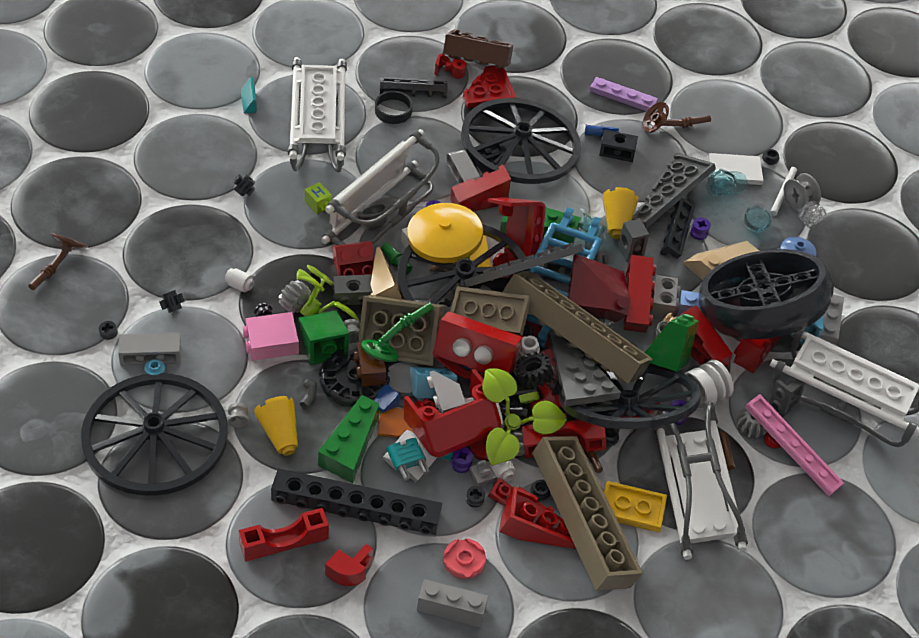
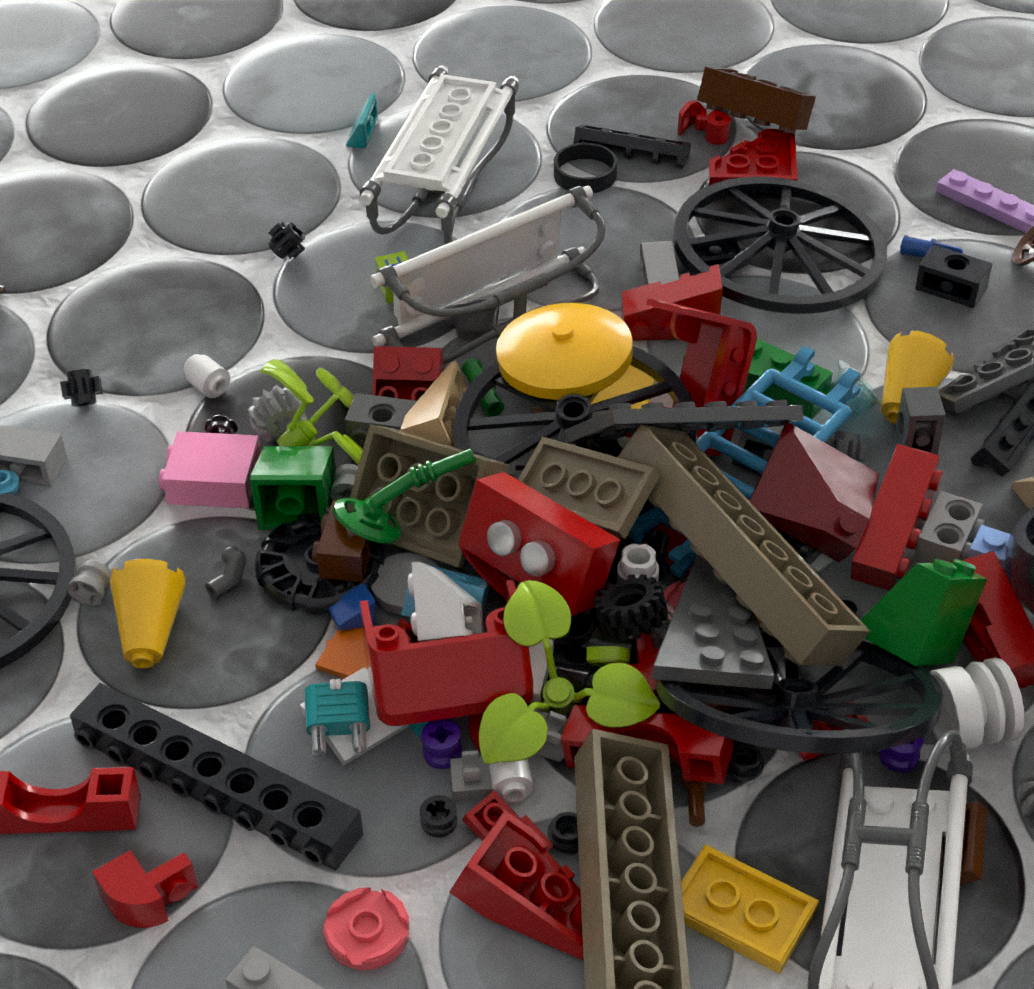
camera: 25 degrees right, 5 degrees down
(349, 441) = (256, 662): green wedge -> none

